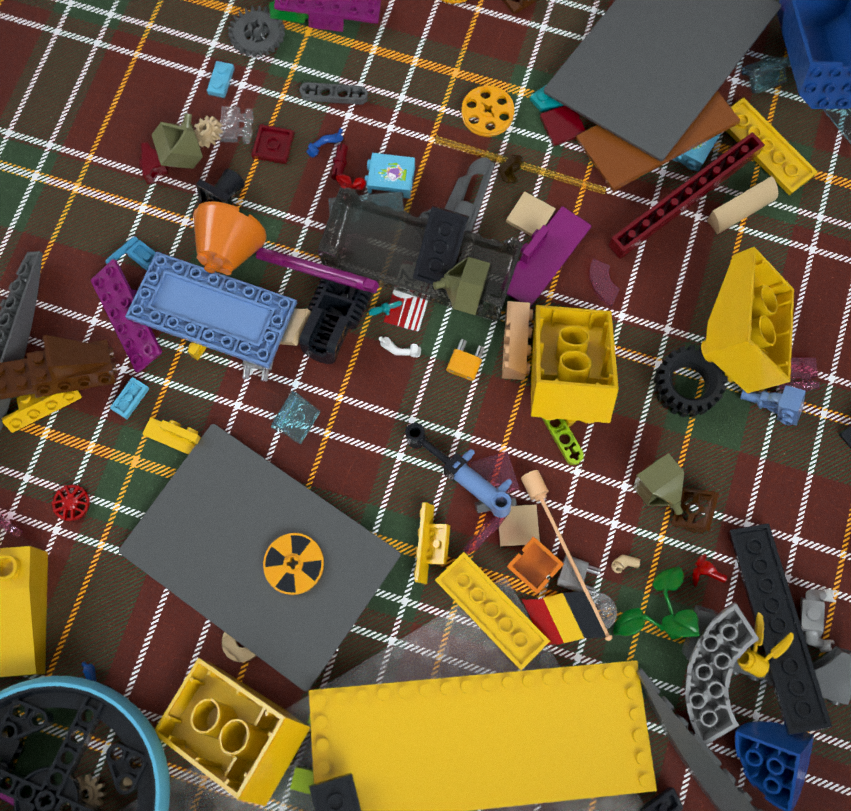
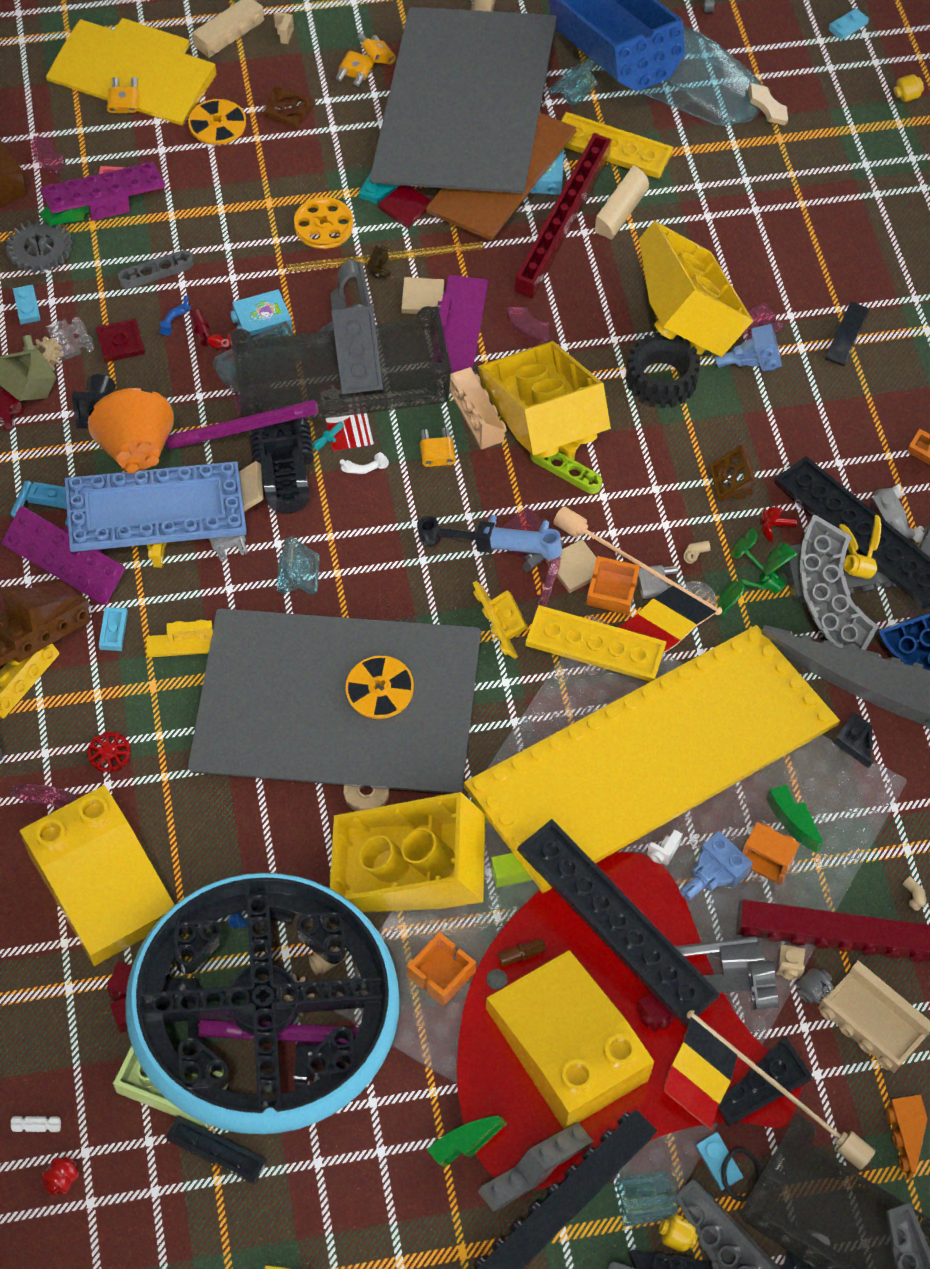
camera: 30 degrees left, 15 degrees down
(465, 284) = (401, 371): olive piece -> none
(661, 484) = (688, 463): olive piece -> none

